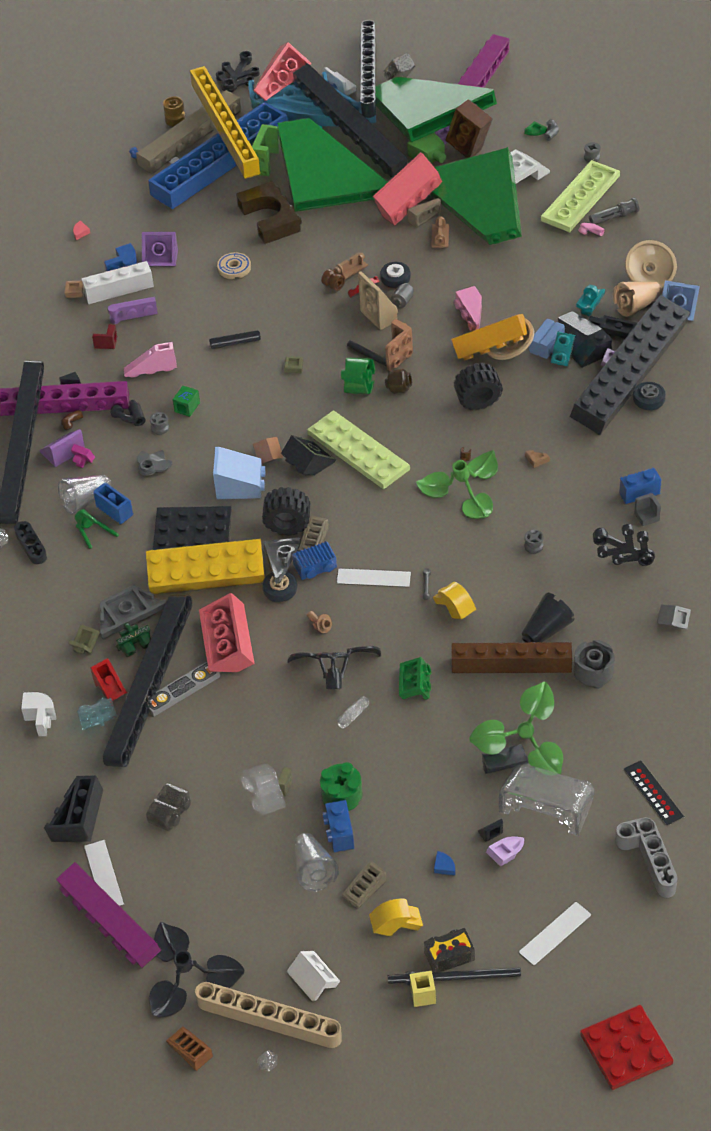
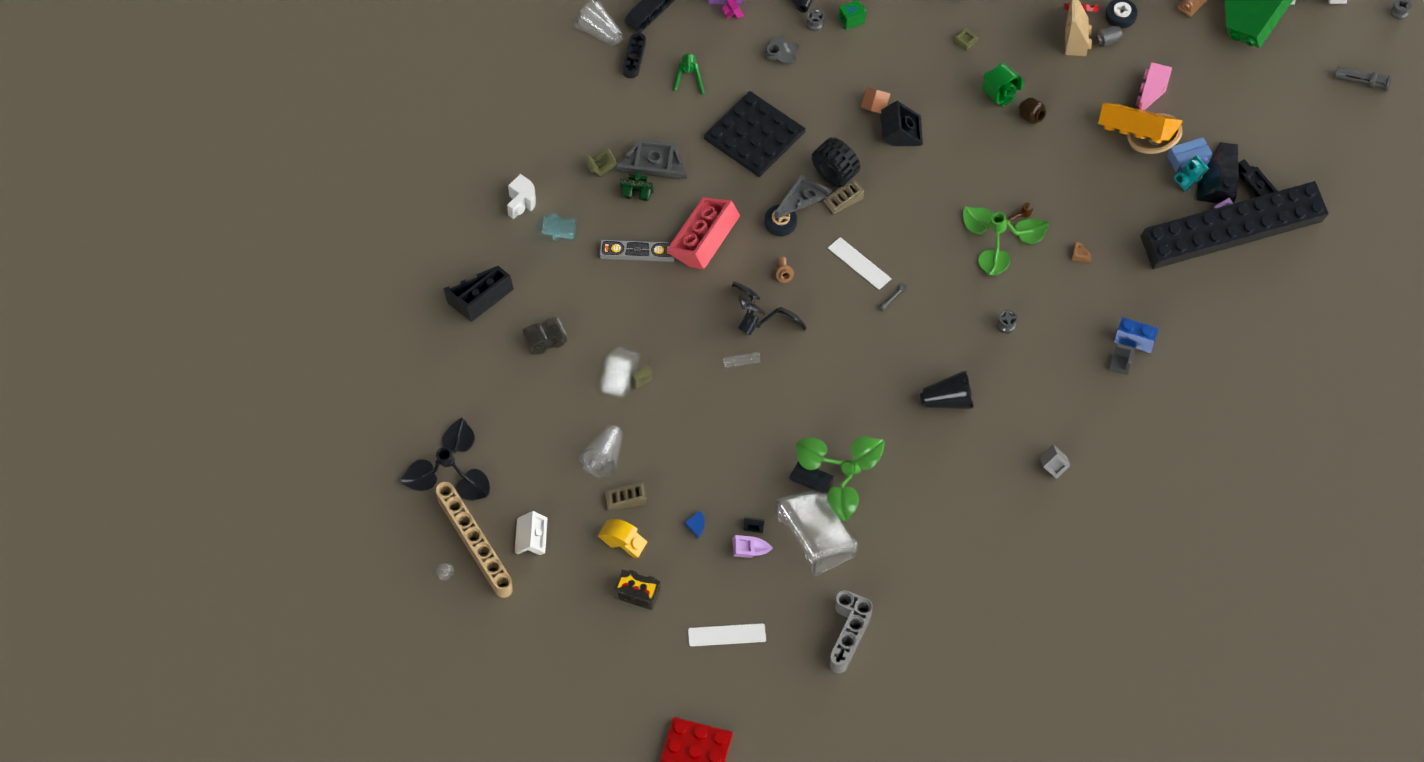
camera: 35 degrees right, 10 degrees up
(79, 491) = (706, 39): clear cone -> none
(103, 870) = (460, 353): white sticker -> none
(107, 680) = (588, 207): red slope -> none
(108, 915) = (433, 386): magenta brick -> none
(113, 503) = (718, 64): blue brick -> none
(147, 681) = (618, 226): black beam -> none
(197, 1061) = (404, 535): dark orange slope -> none
(205, 566) = (737, 165): yellow brick -> none
(237, 475) = (830, 105): light blue slope -> none
(314, 560) = (824, 218): blue brick -> none
(339, 825) = (648, 439): blue brick -> none
(341, 783) = (676, 411): green brick -> none
(358, 449) = (947, 148): yellowish green plate -> none
(367, 352) = (1034, 69): black bar -> none
(400, 346) = (1058, 81): nougat bracket -> none
(414, 678) = (809, 367): green bracket -> none
(422, 988) = (591, 602): light yellow brick -> none
(456, 600) = (897, 327): yellow brick -> none
(459, 975) = (594, 588): black bar -> none
(478, 386) = (1085, 159): black tyre -> none
(512, 657) = (896, 403): reddish brown brick -> none
(580, 196) = (1349, 43): yellowish green plate -> none
(584, 227) = (1331, 80): bright pink arm -> none
(590, 299) = (1261, 143): teal hips -> none
(594, 663) = (952, 453): dark grey brick -> none
(635, 296) = (1302, 167): light nougat cone -> none
(644, 556) = (1080, 394): black plant -> none
(649, 395) = (1230, 259): black wheel -> none
(652, 255) = (1338, 135): tan dish -> none
(654, 792) = (902, 586): black sticker -> none
(682, 295) = (1337, 194): light blue slope -> none

